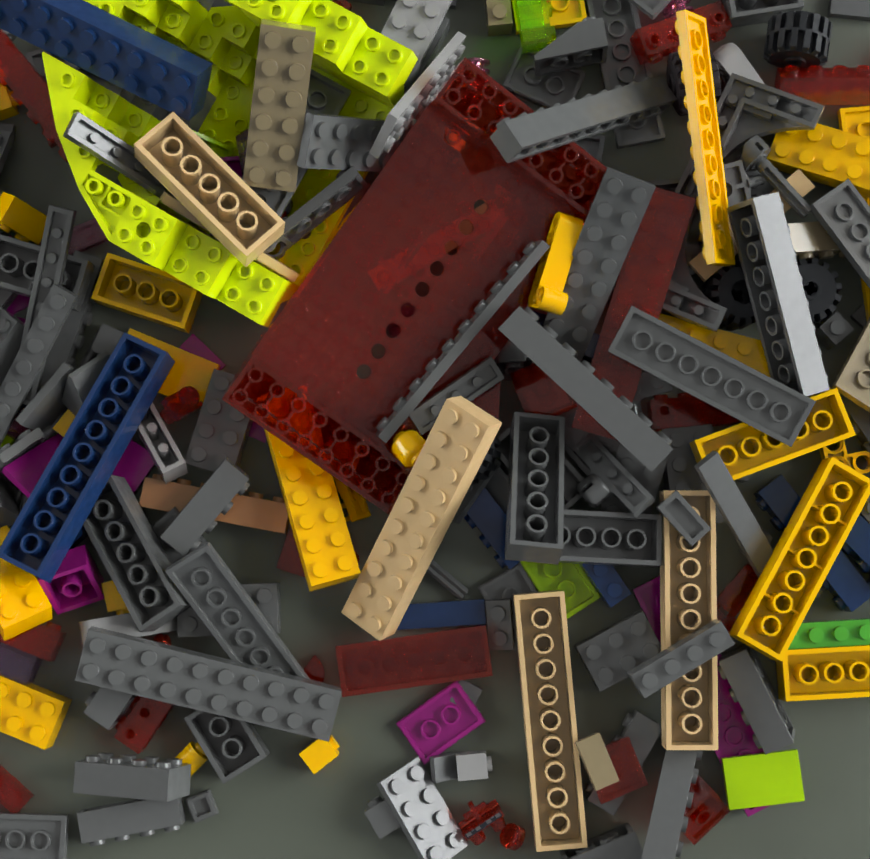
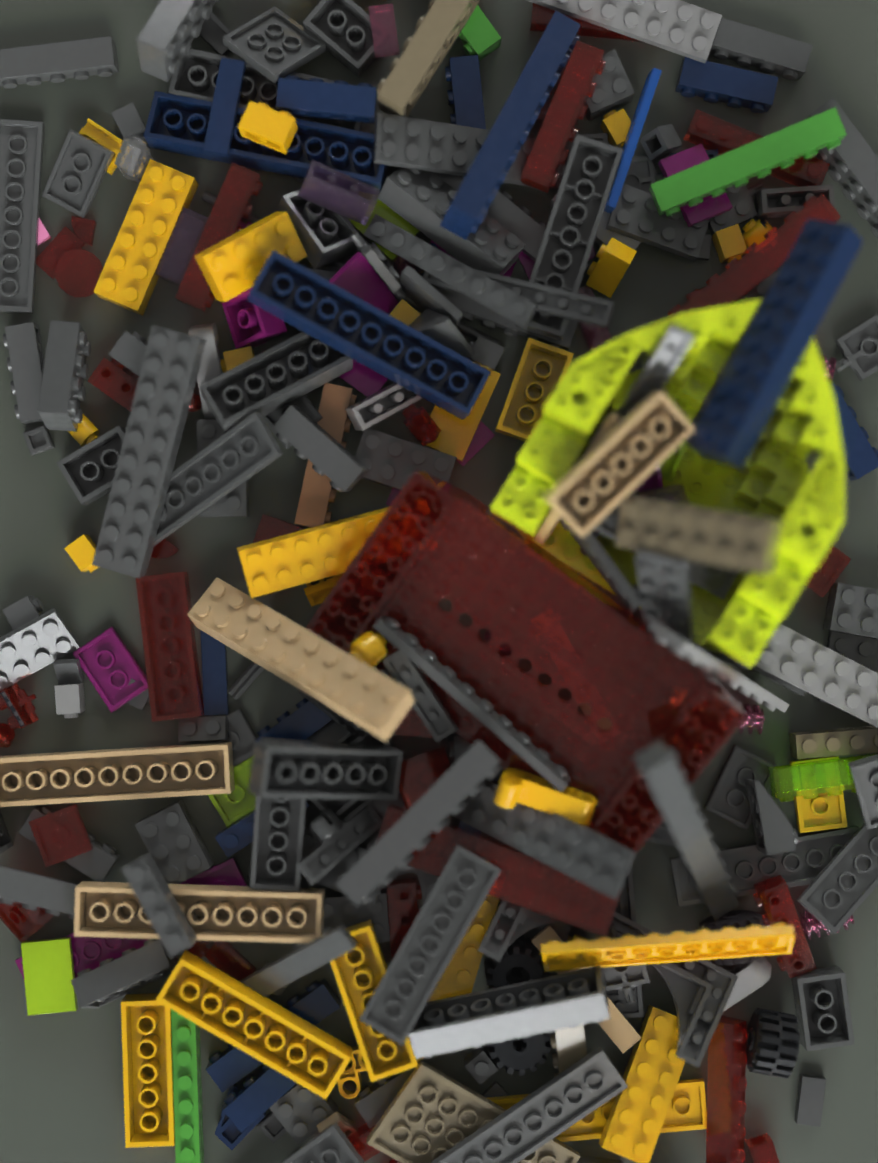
camera: 85 degrees right, 5 degrees up
(26, 767) = (78, 272): none -> clear red tile
(597, 761) = (68, 819): dark tan tile -> none
(683, 518) = (294, 912): dark grey tile -> none
(756, 157) = (653, 996): dark grey piece -> none

